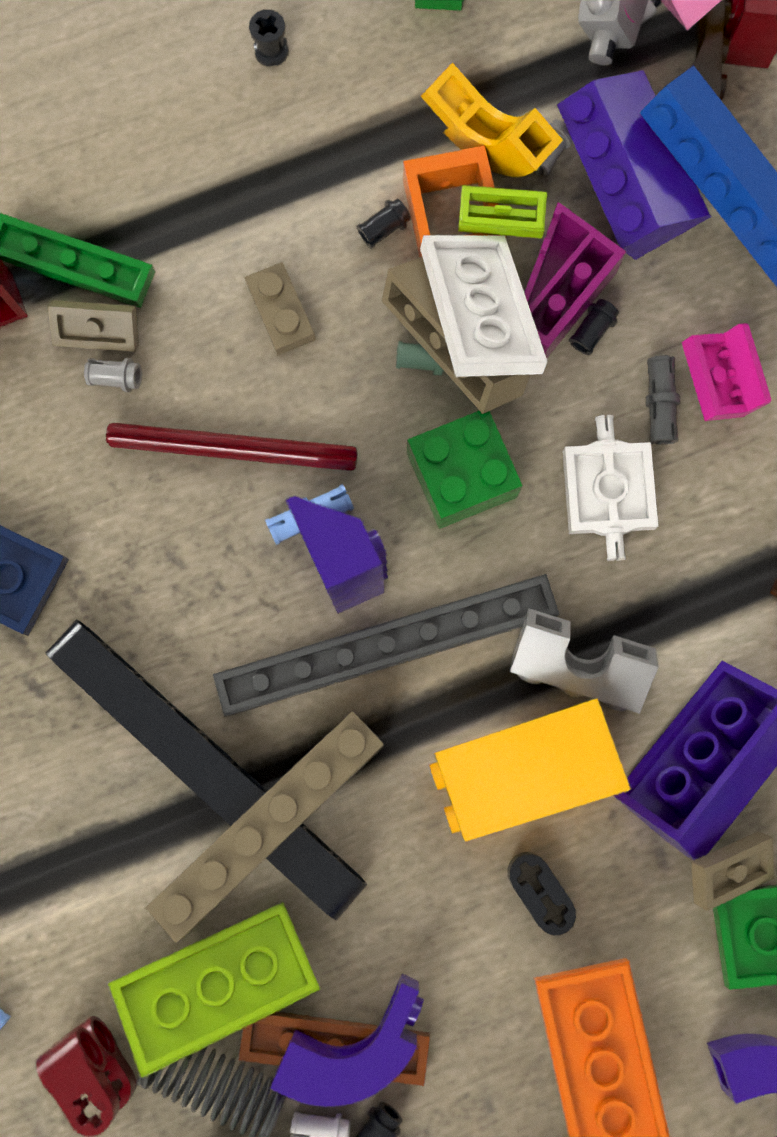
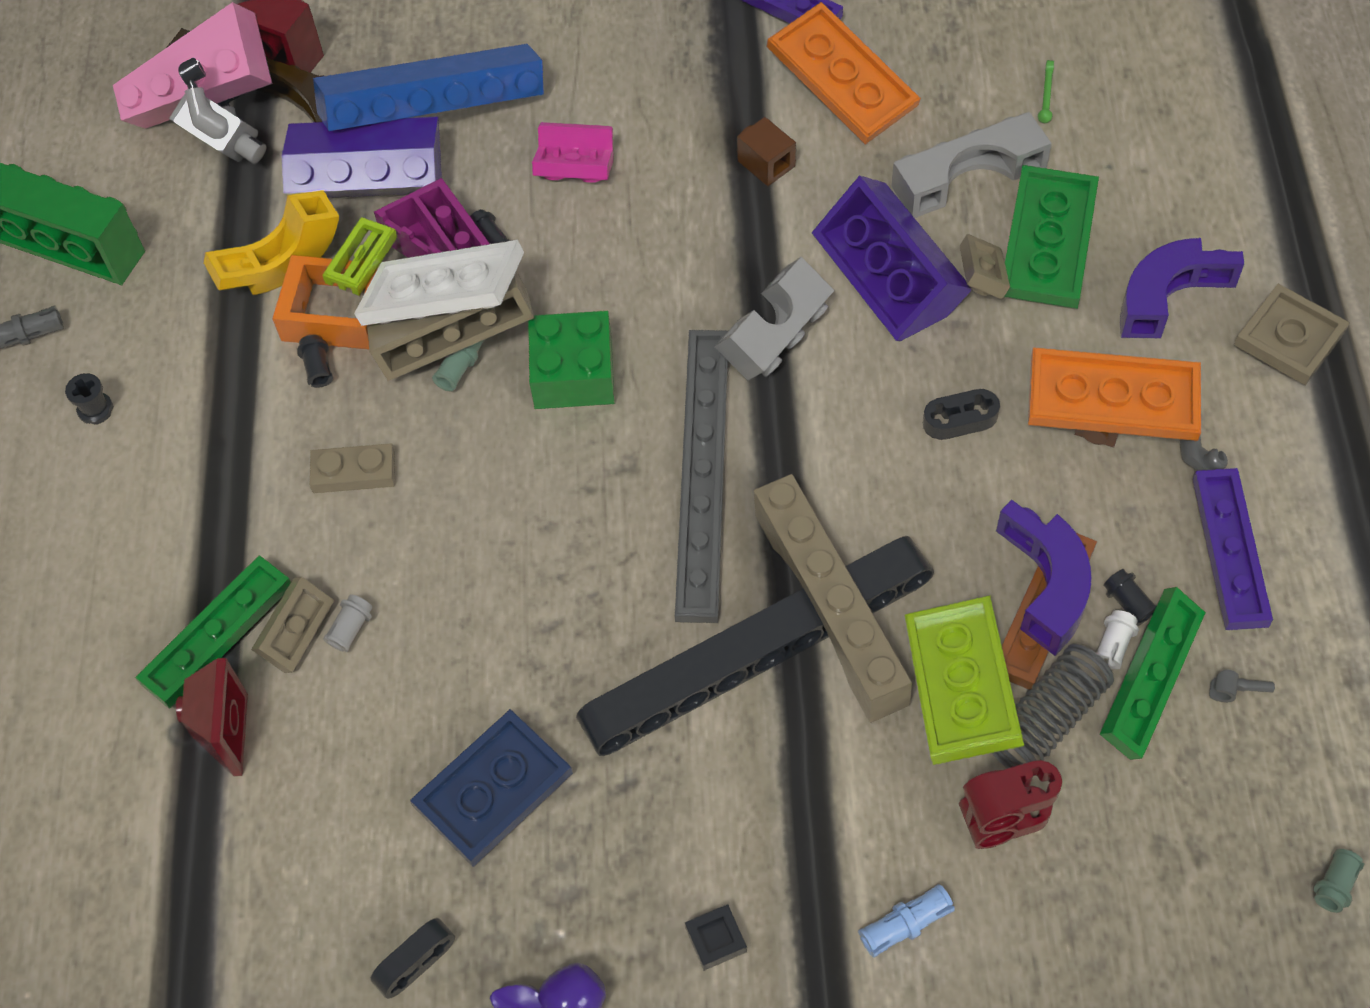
camera: 70 degrees left, 20 degrees down
(232, 446) = (463, 546): dark red axle -> none
(284, 526) = (558, 496): light blue pin -> none
(343, 551) = (611, 446): dark purple slope -> none
(529, 771) = (853, 380): yellow slope -> none
(610, 488) = (634, 262): white plate -> none
(662, 400) = (575, 204): dark grey pin -> none

